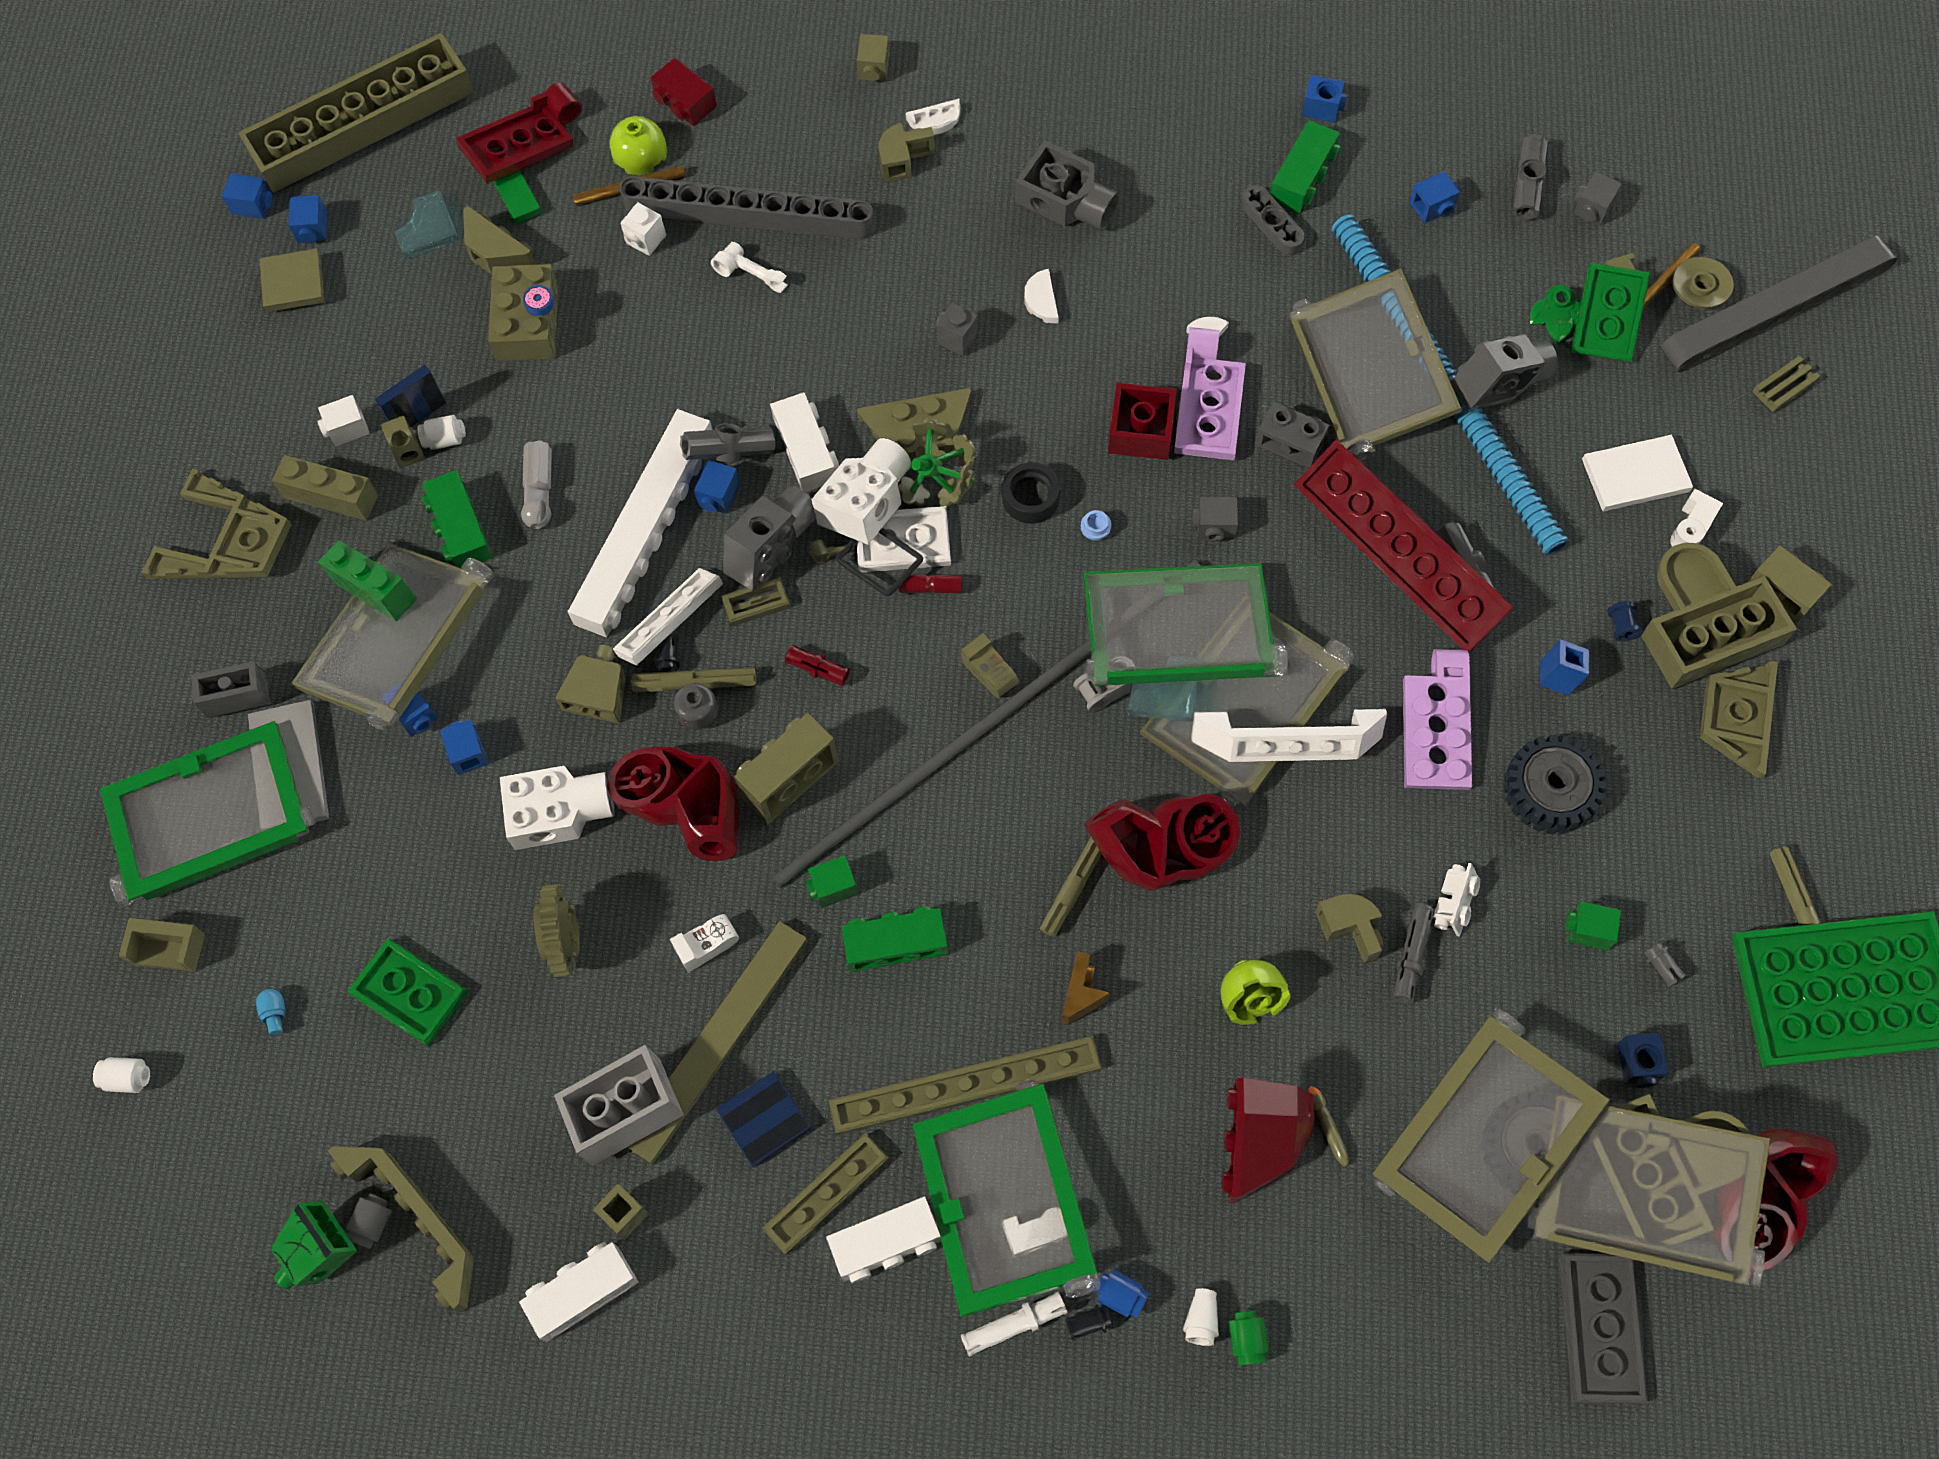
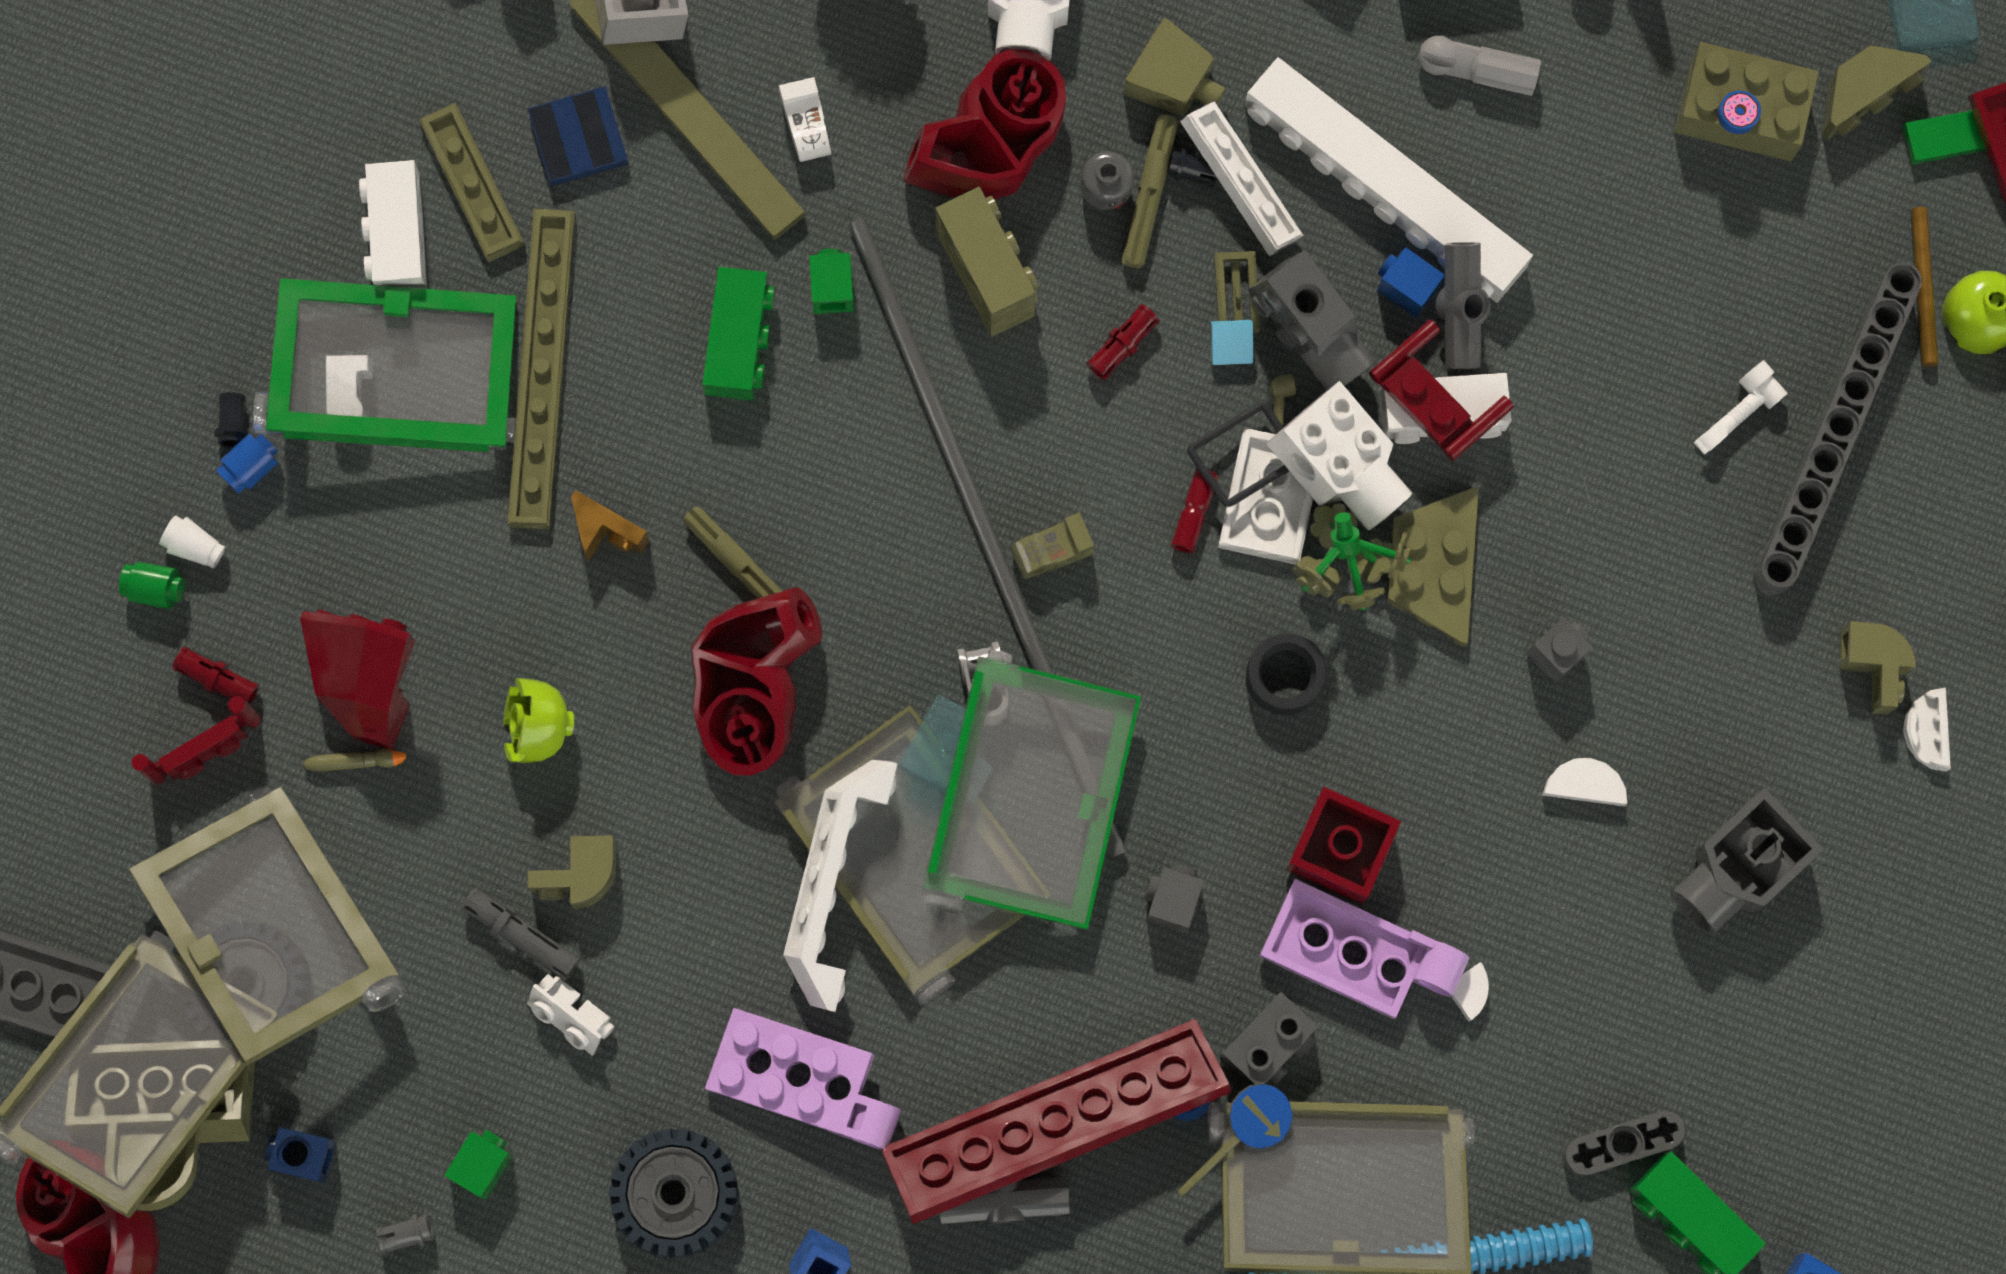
camera: 100 degrees right, 10 degrees up
(643, 229) = (1836, 281): white brick -> none
(796, 591) = (1232, 342): none -> medium azure tile
(806, 444) = (1429, 401): none -> dark red plate
(1013, 1324) = (257, 335): white pin -> none
(1096, 525) = (1214, 743): light blue plate -> none
(1304, 1258) = (214, 675): none -> dark red pin
(1352, 422) = (1258, 1118): none -> blue piece
(1378, 1254) = (189, 758): none -> dark red plate

